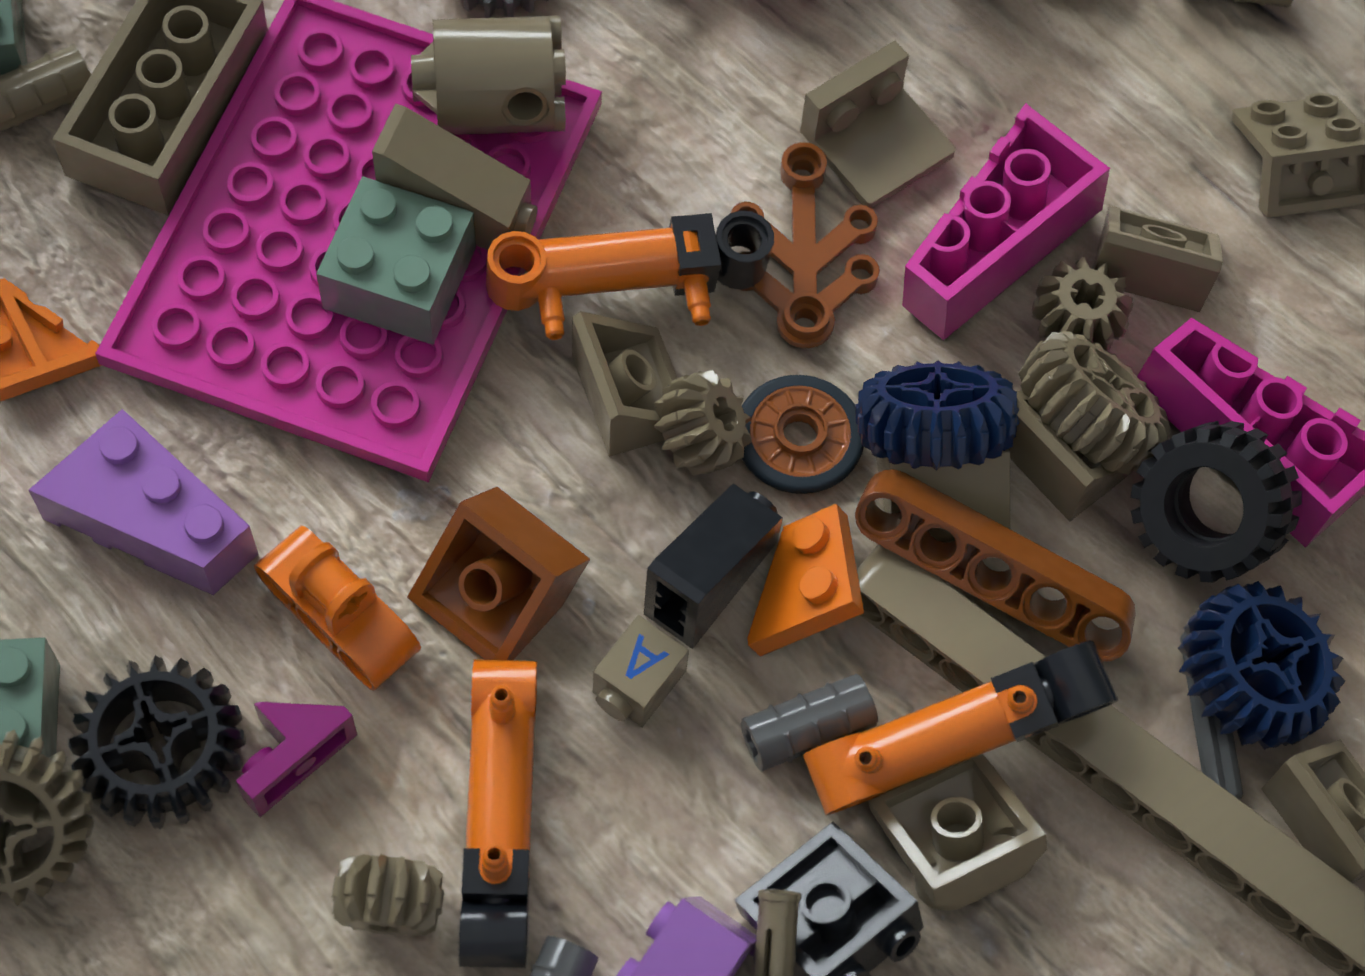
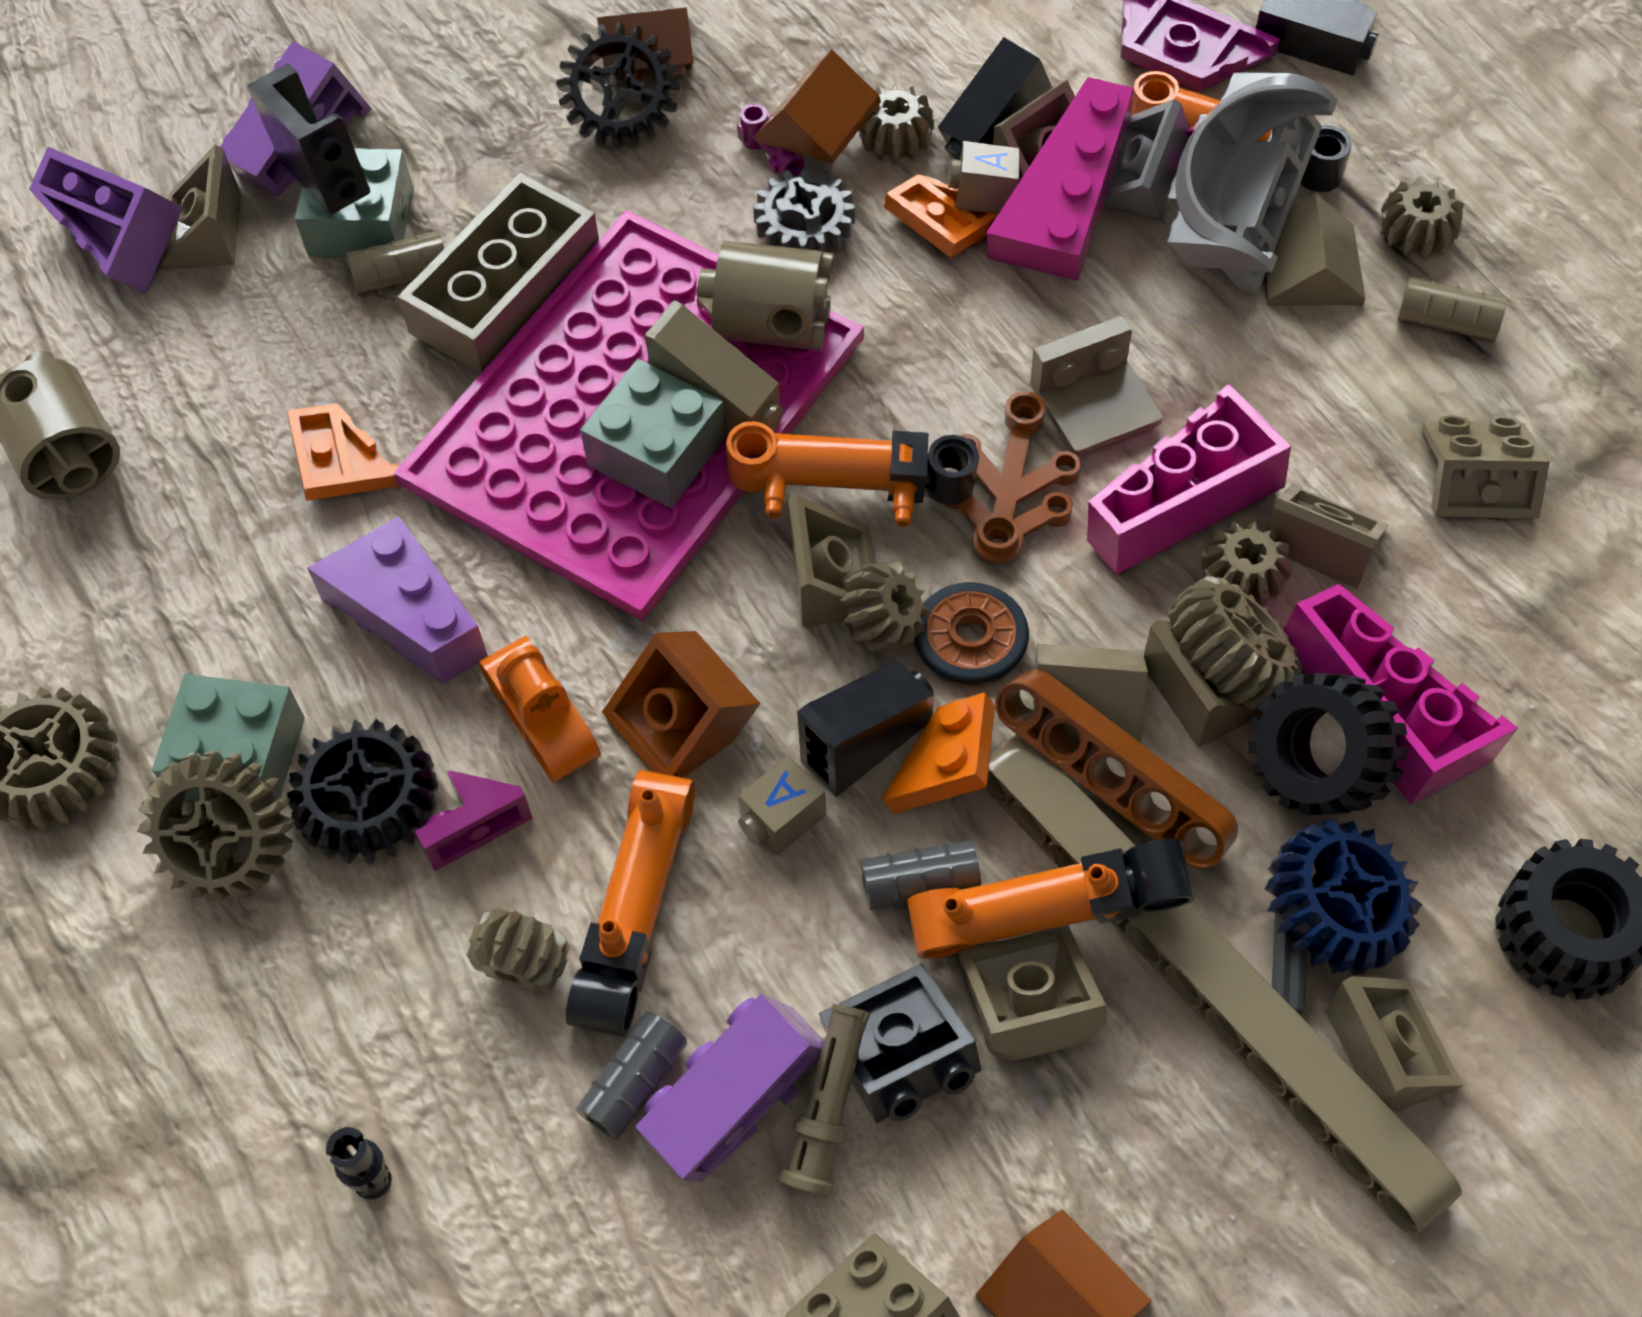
camera: 20 degrees right, 5 degrees down
(937, 415) = (1090, 631): dark blue gear -> none

